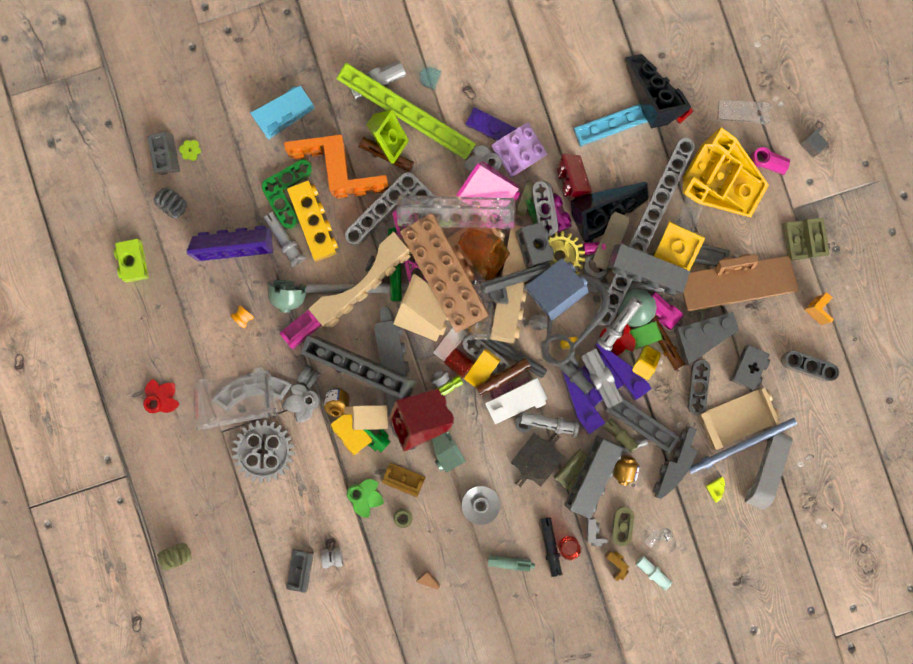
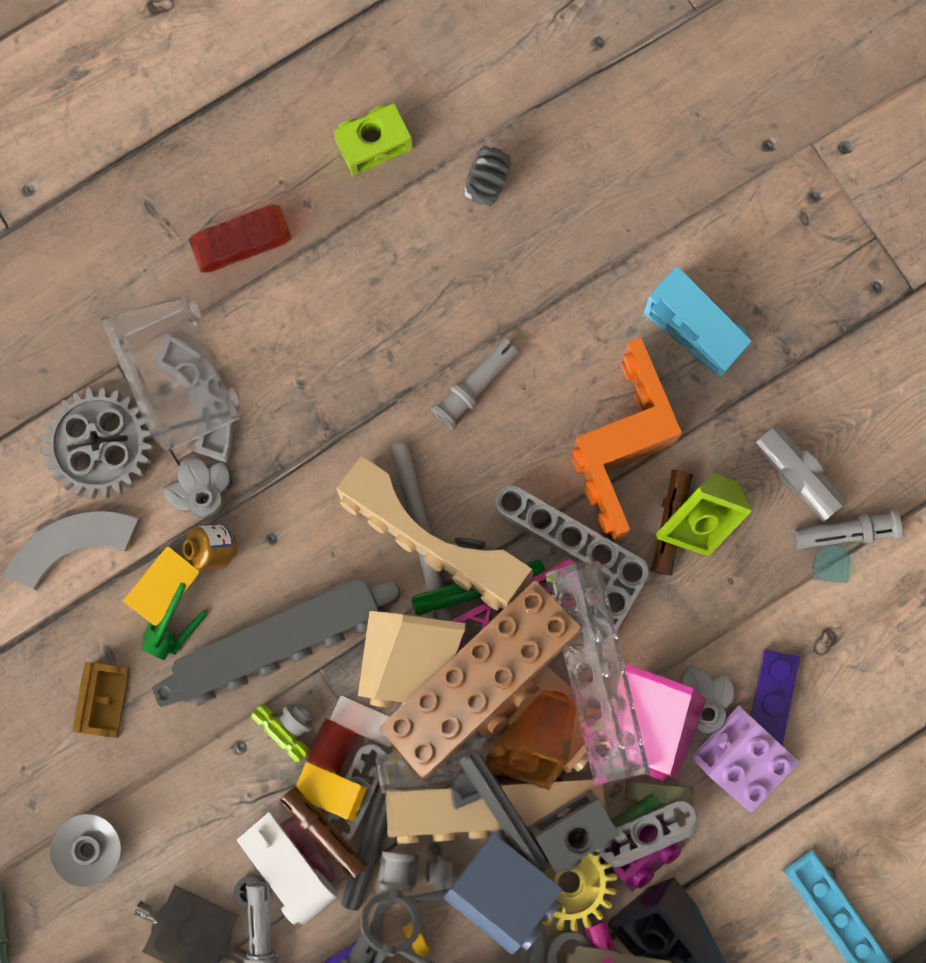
camera: 80 degrees right, 5 degrees down
(162, 395) = (156, 250): red plate -> none
(163, 153) = (571, 143): dark grey hinge -> none
(168, 347) = (240, 238): none -> clear red beam
(184, 149) = (586, 178): lime plant -> none
(231, 244) = (442, 294): dark purple slope -> none
(241, 316) = (322, 347): light orange wheel -> none
(278, 192) = (553, 354): green beam -> none
(286, 295) = (378, 412): sand green cylinder -> none
(300, 329) = (322, 450): dark pink hinge -> none
(307, 191) = (557, 386): yellow brick -> none
(308, 377) = (244, 488): dark grey wheel -> none
(310, 479) = (67, 536): none -> light grey tile
(358, 367) = (277, 570): dark grey brick -> none
(367, 498) = (57, 644): bright green plate -> none
(368, 417) = (195, 608): tan panel -> none
(399, 523) = (24, 712): olive plate -> none
(405, 111) = (757, 537): lime tile -> none
(415, 55) = (863, 528): none -> light grey pin
(420, 418) = (209, 703): dark red slope -> none
(447, 452) = (171, 762): sand green wedge -> none
(531, 343) = (398, 871): none -> light grey piece
(573, 175) = (721, 872): dark red slope -> none

